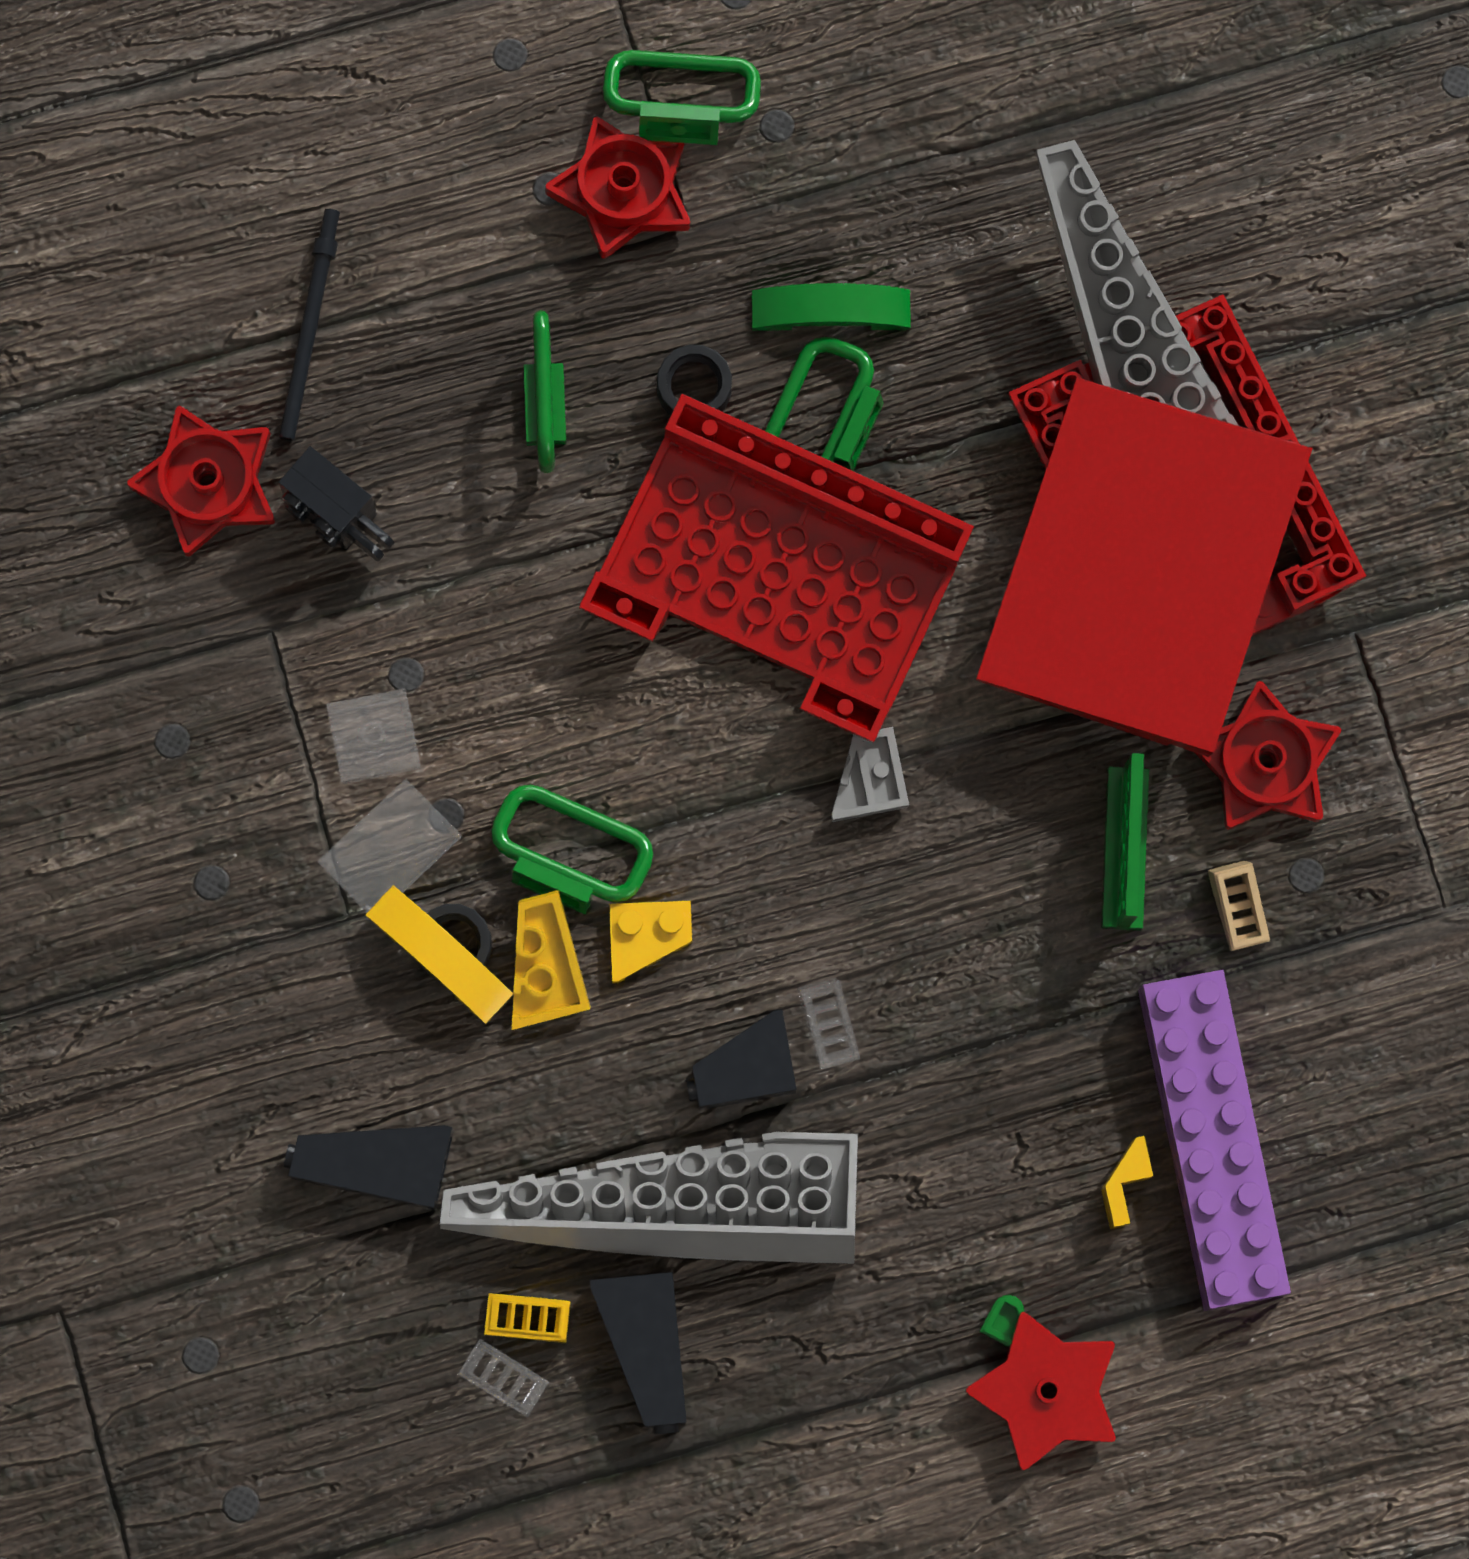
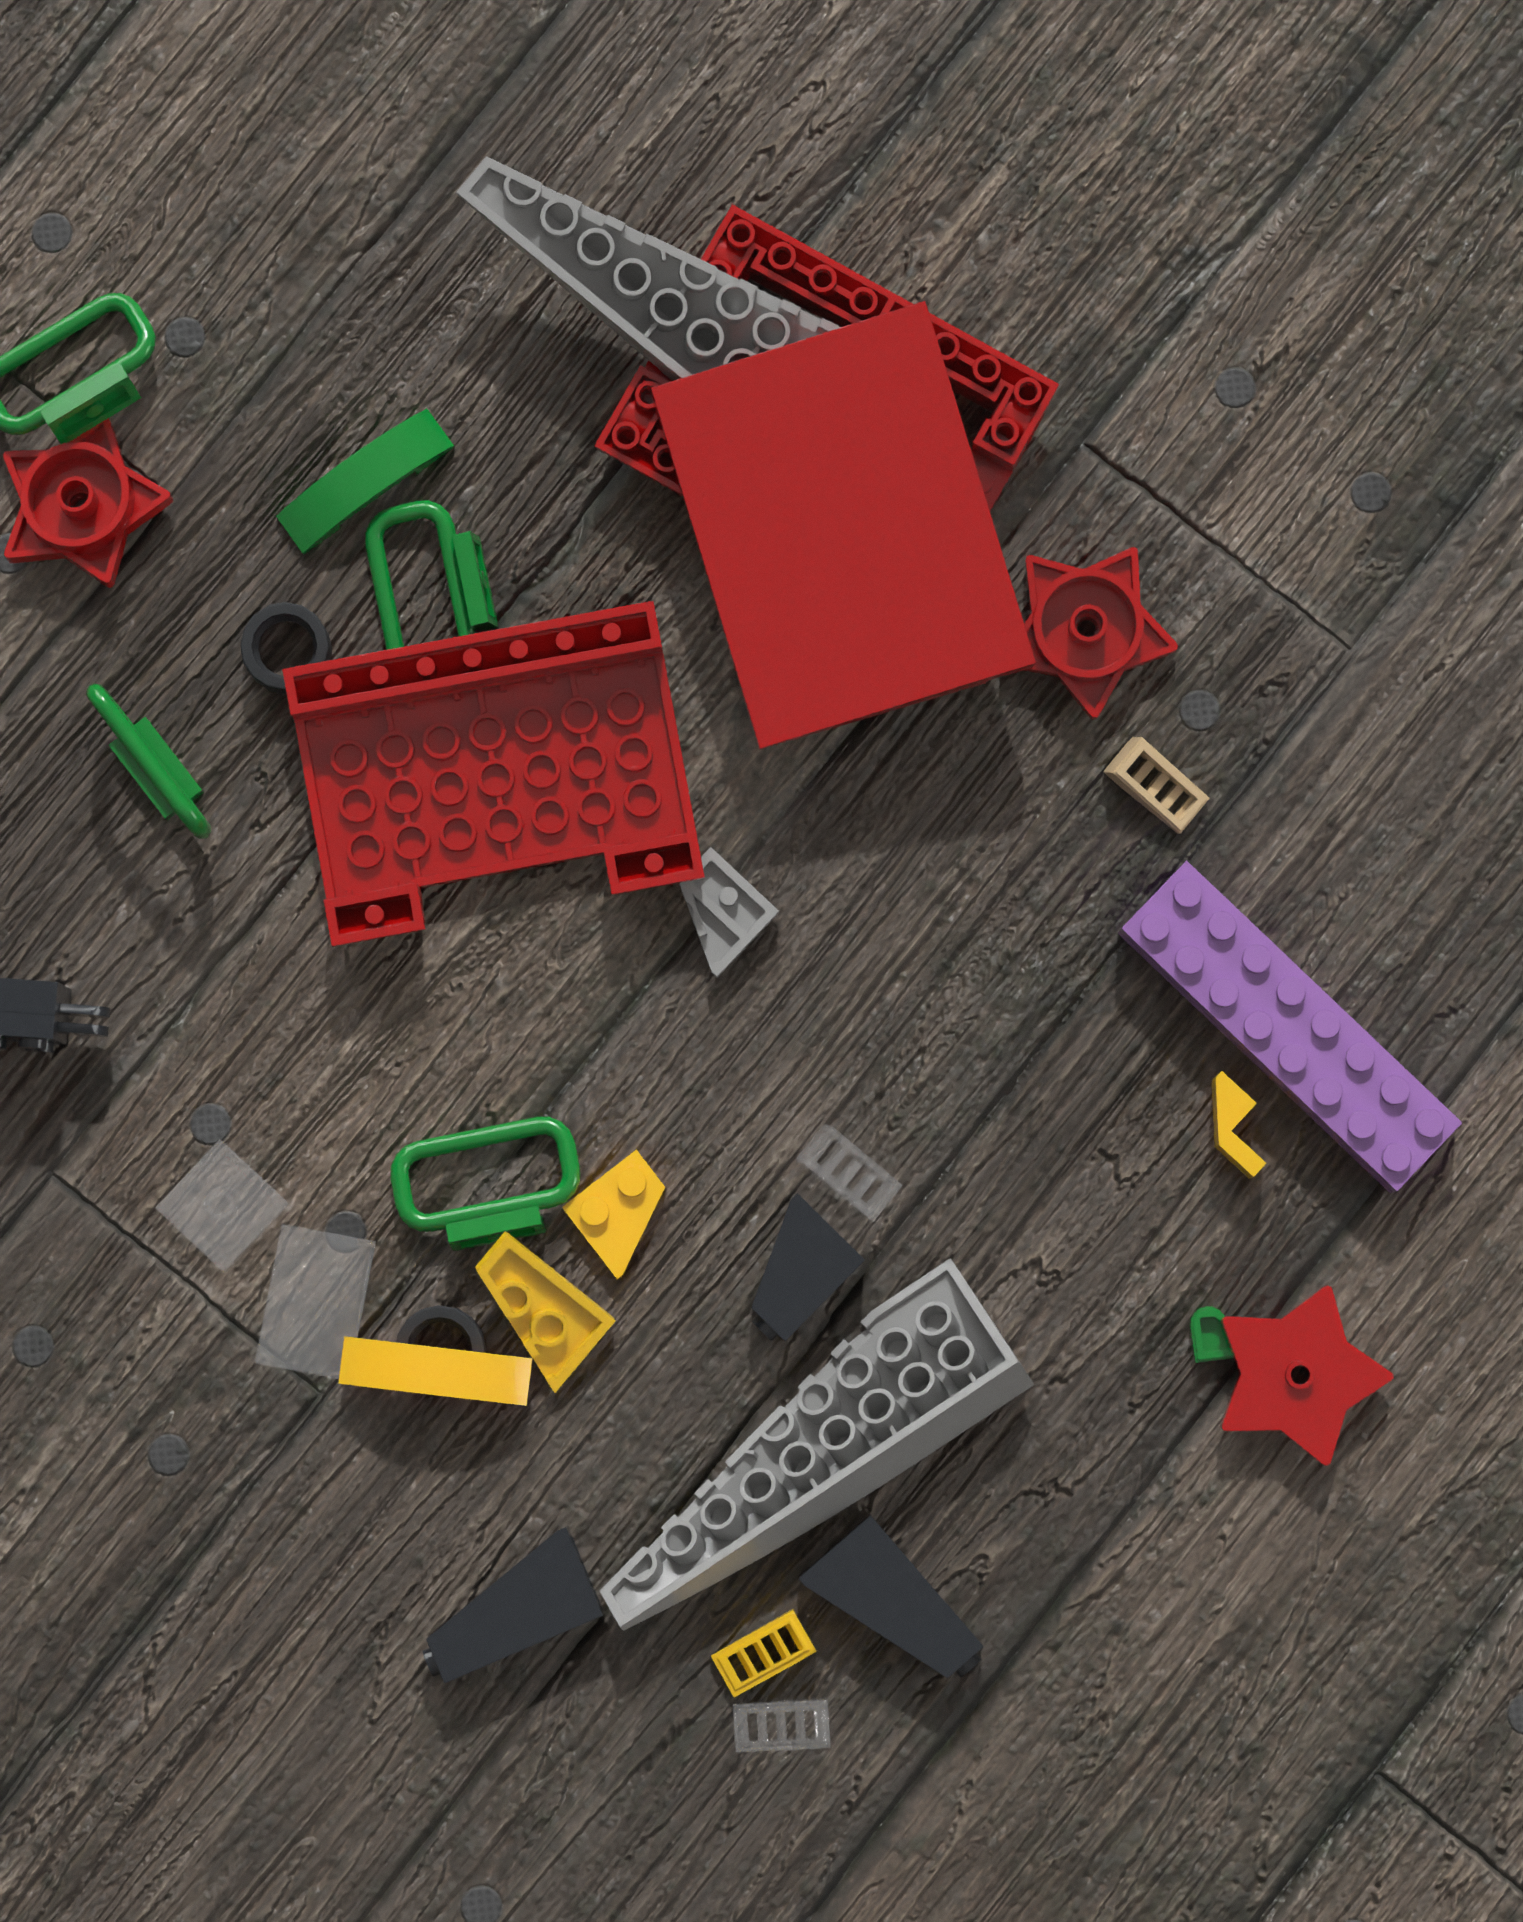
camera: 25 degrees left, 5 degrees up
(1125, 845) = (1010, 804): green fence -> none

